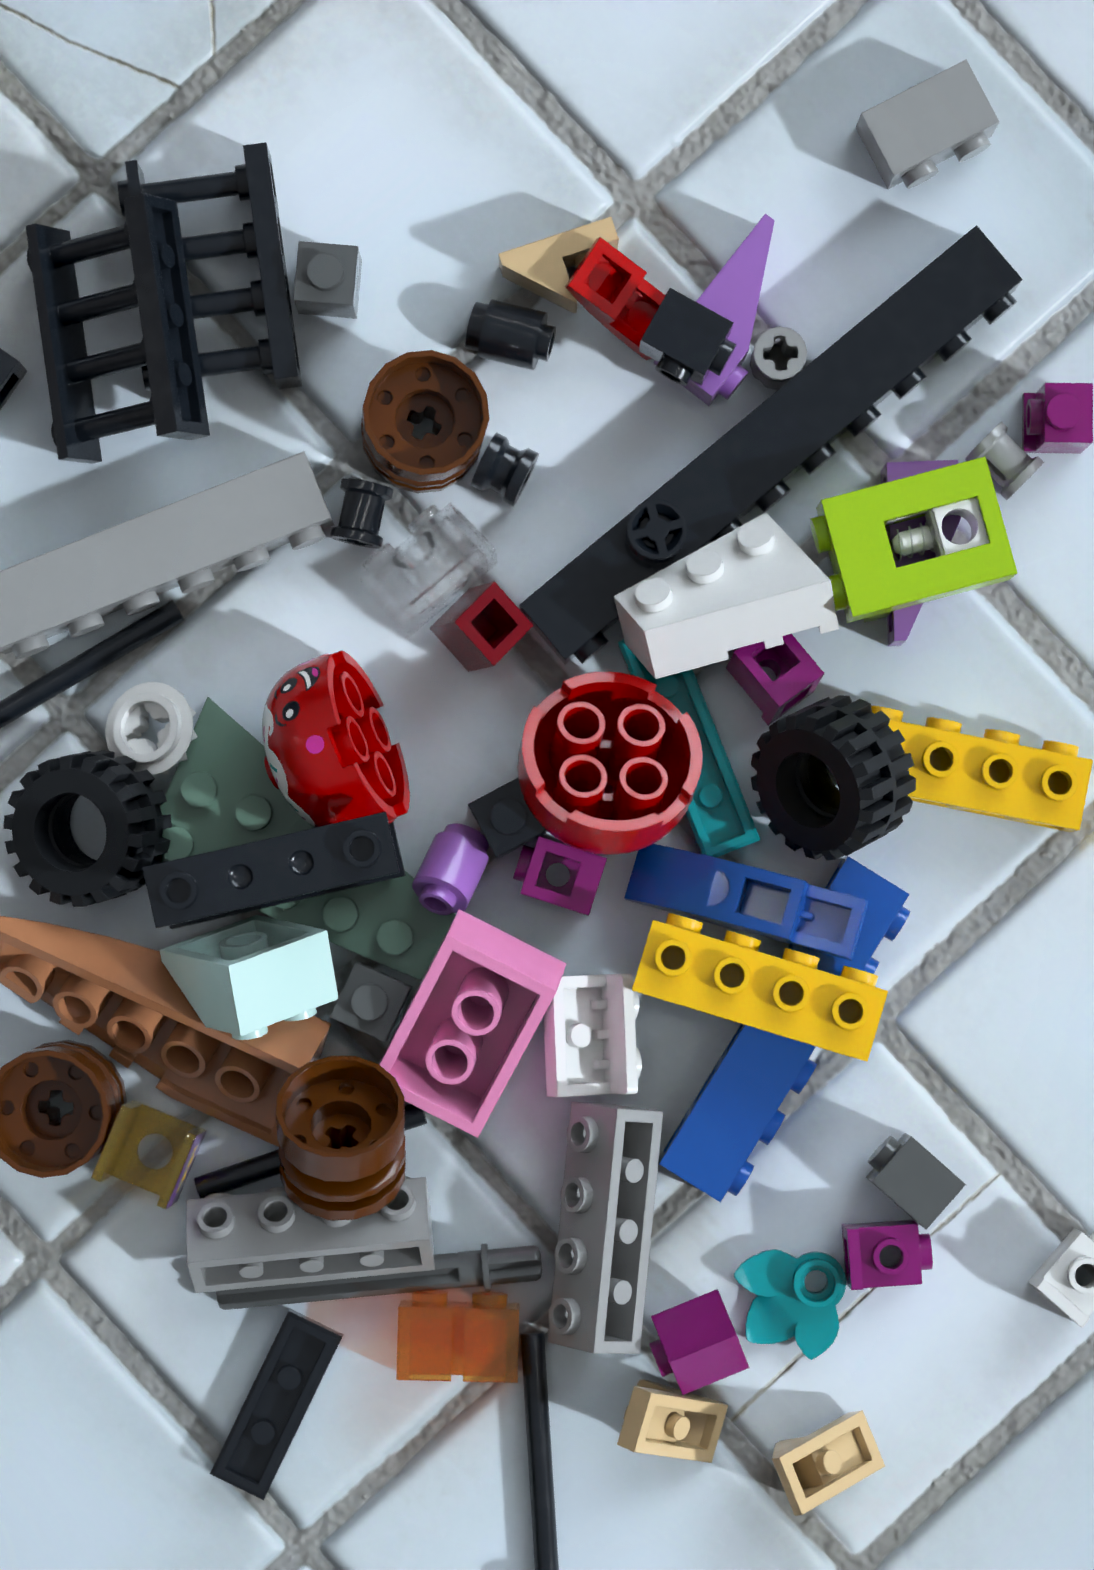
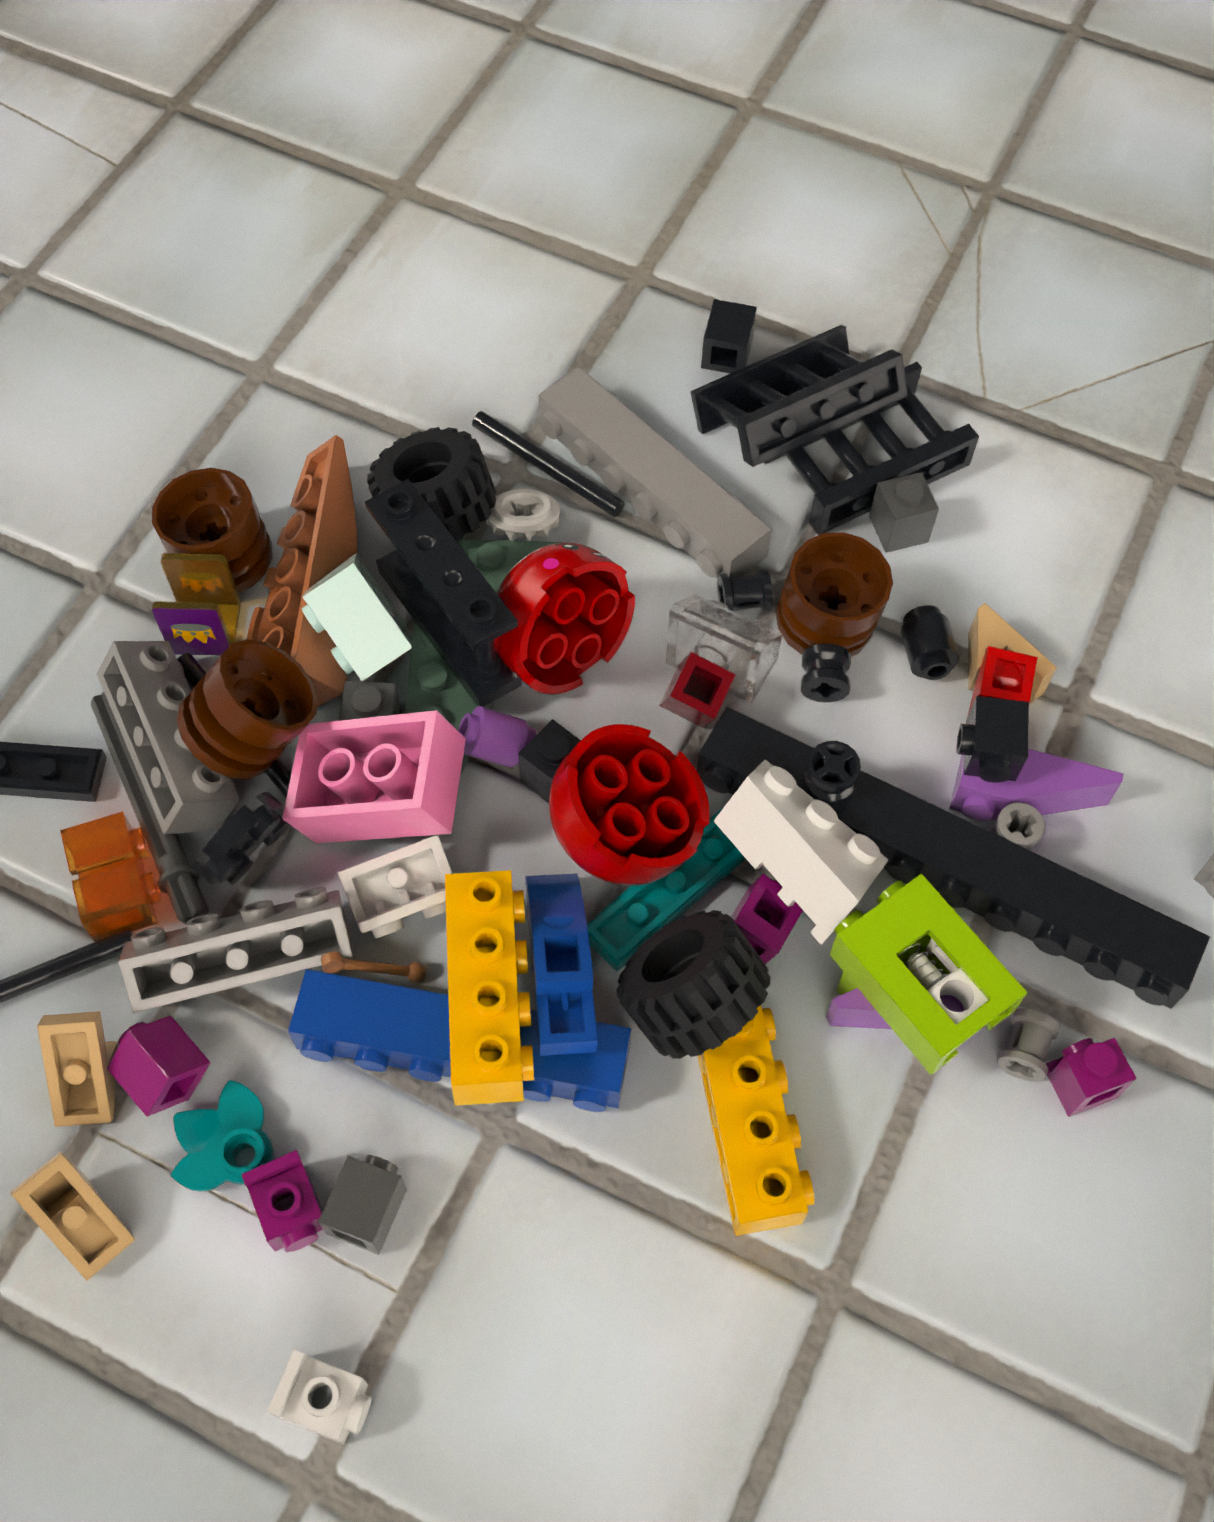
camera: 70 degrees right, 25 degrees down
(476, 1182) = (239, 838): none -> black plate
(584, 875) = (518, 838): magenta brick -> none
(683, 1051) = (334, 962): none -> medium nougat hinge

